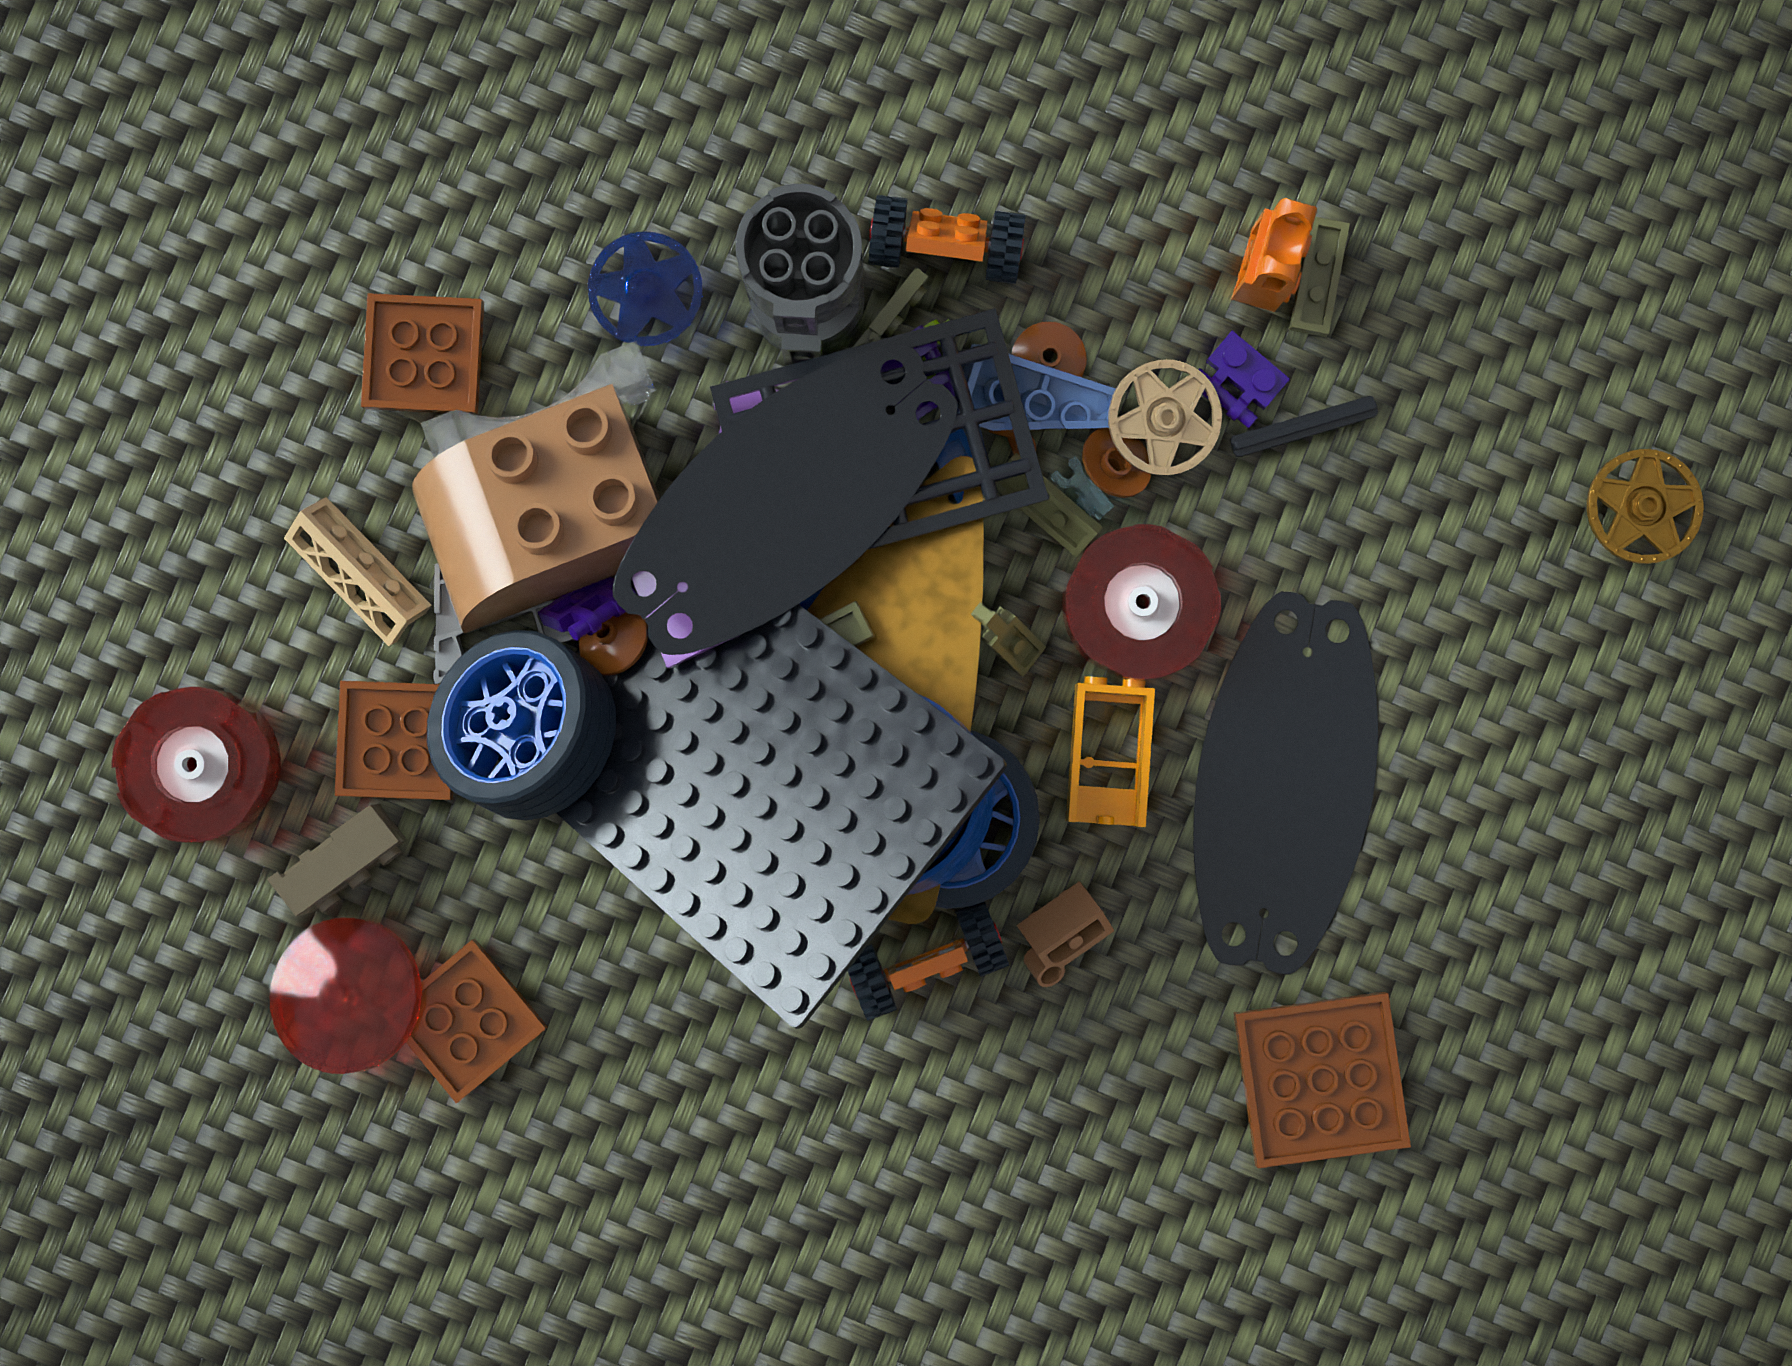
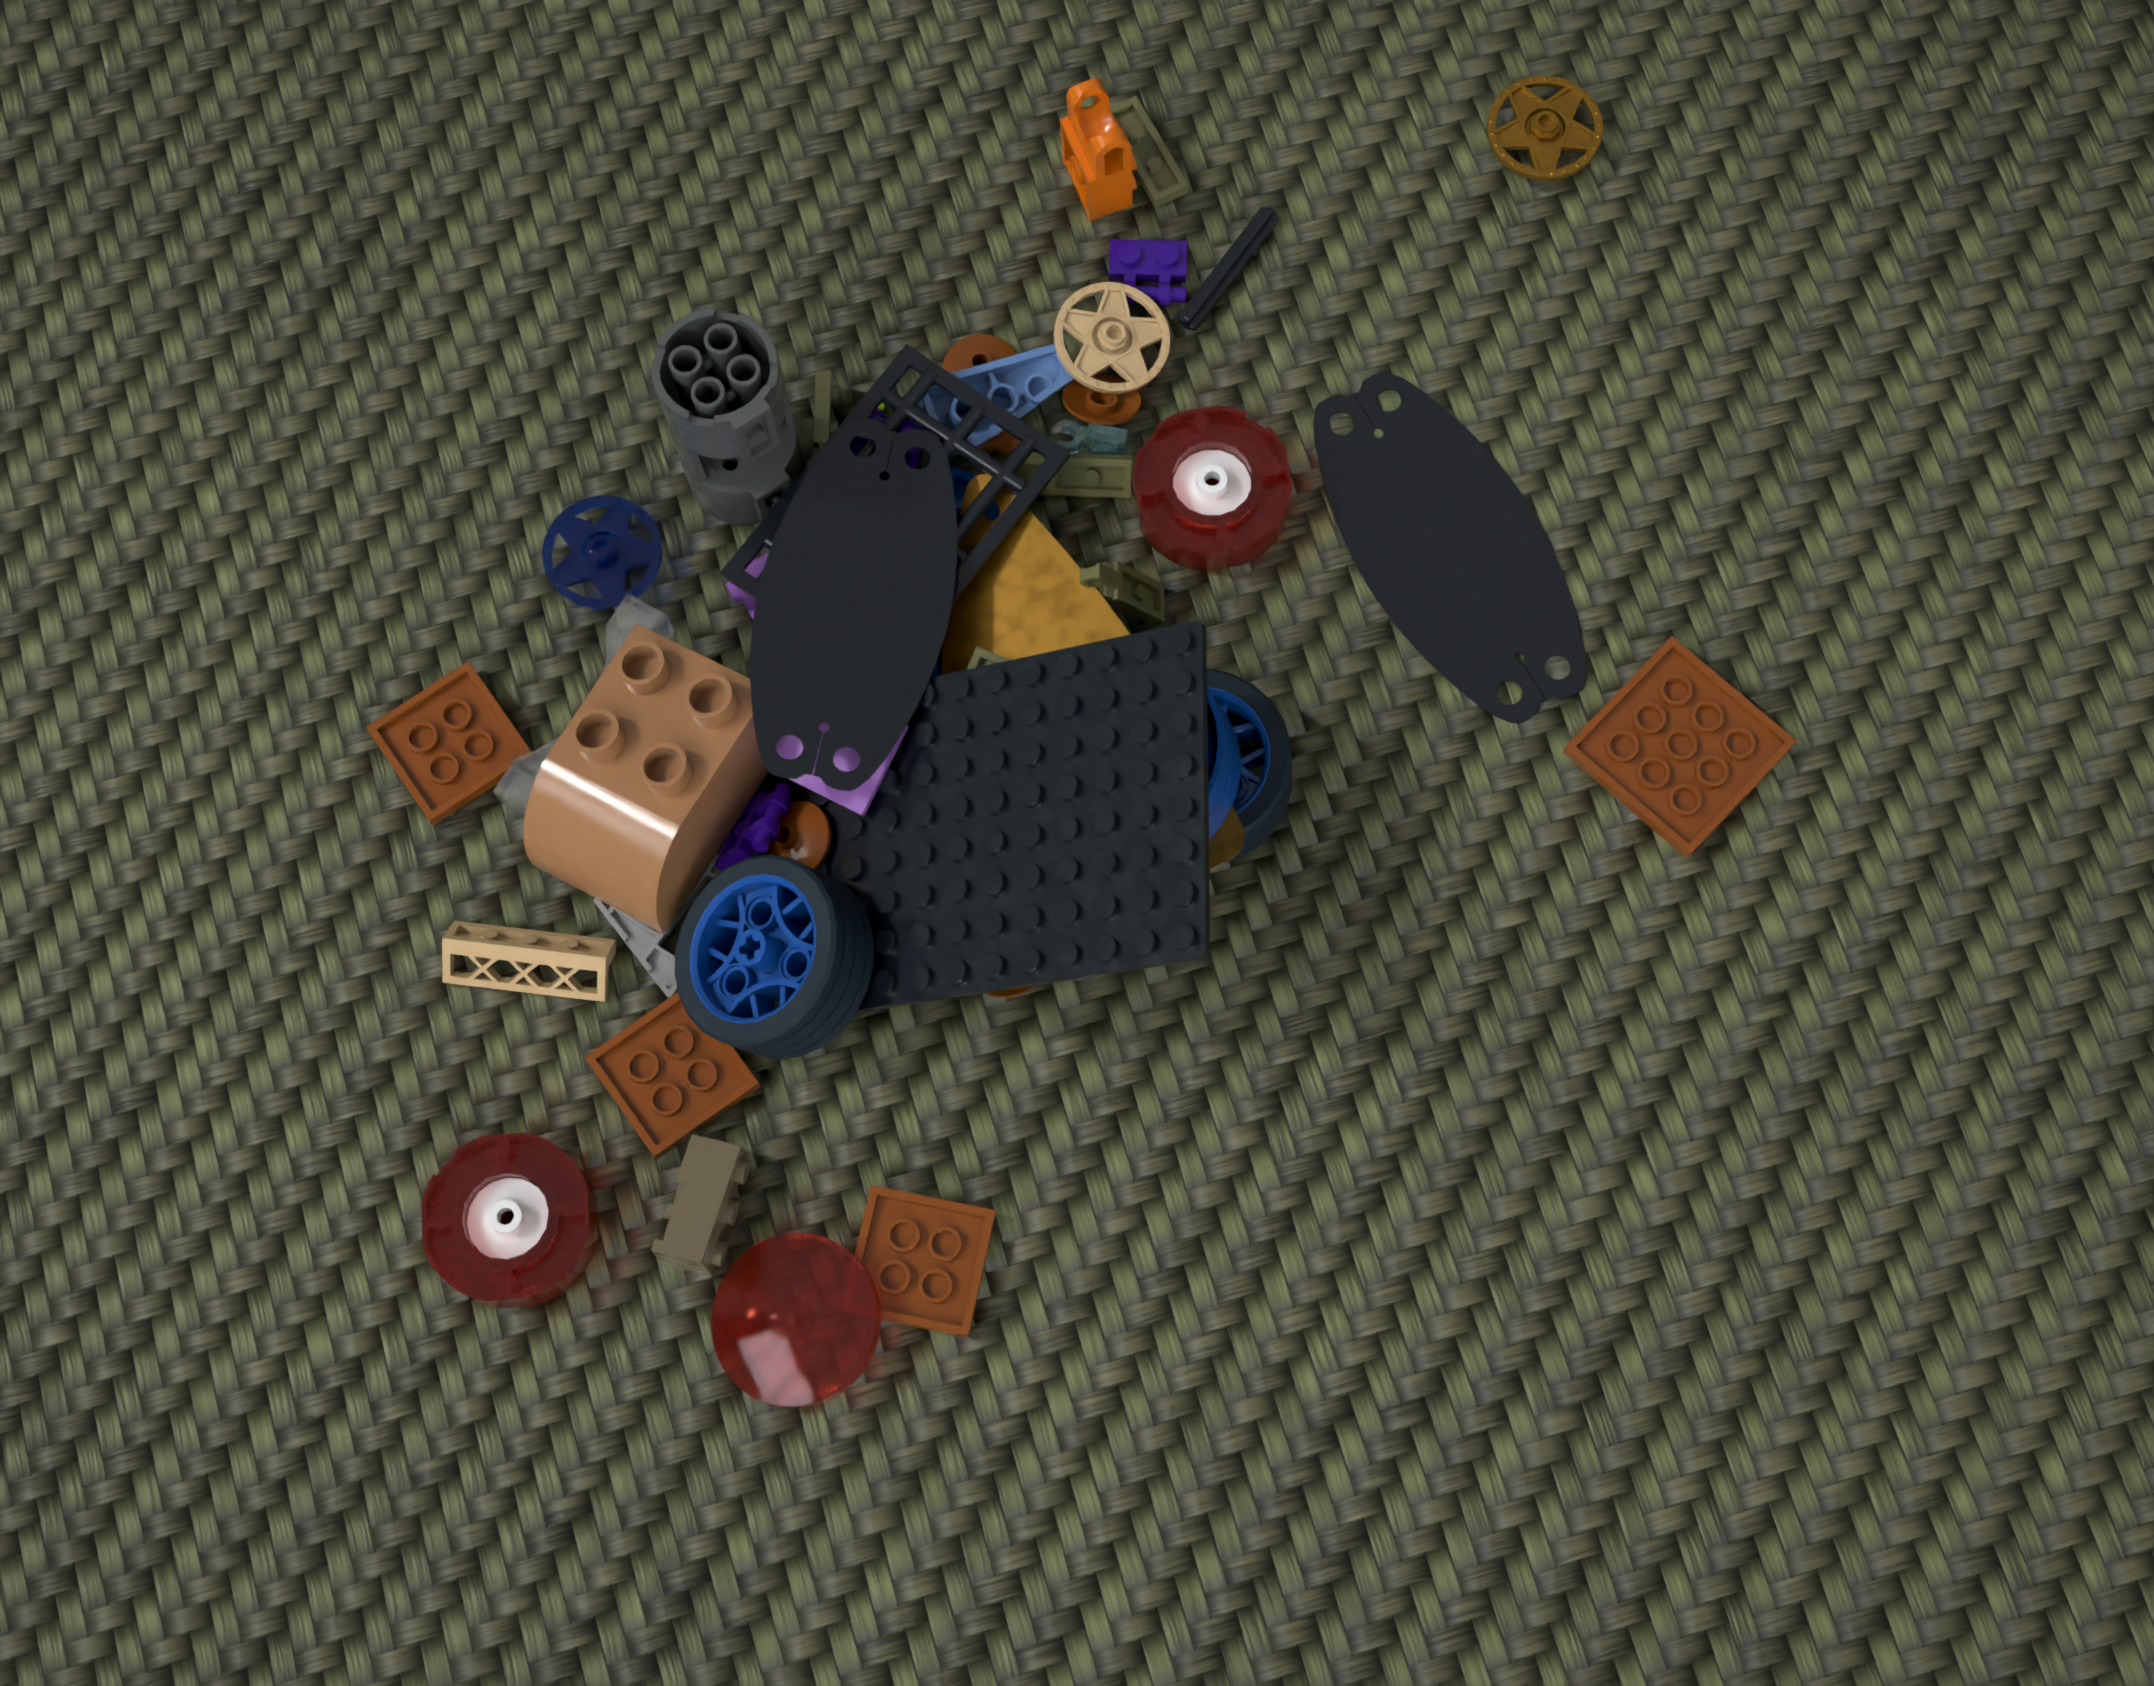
camera: 30 degrees left, 15 degrees down
(946, 236) = (871, 305): plate -> none
(981, 938) = (1307, 848): black plate -> none
(1062, 933) = (1368, 790): medium nougat hinge -> none
(1104, 804) = (1317, 670): light orange door -> none

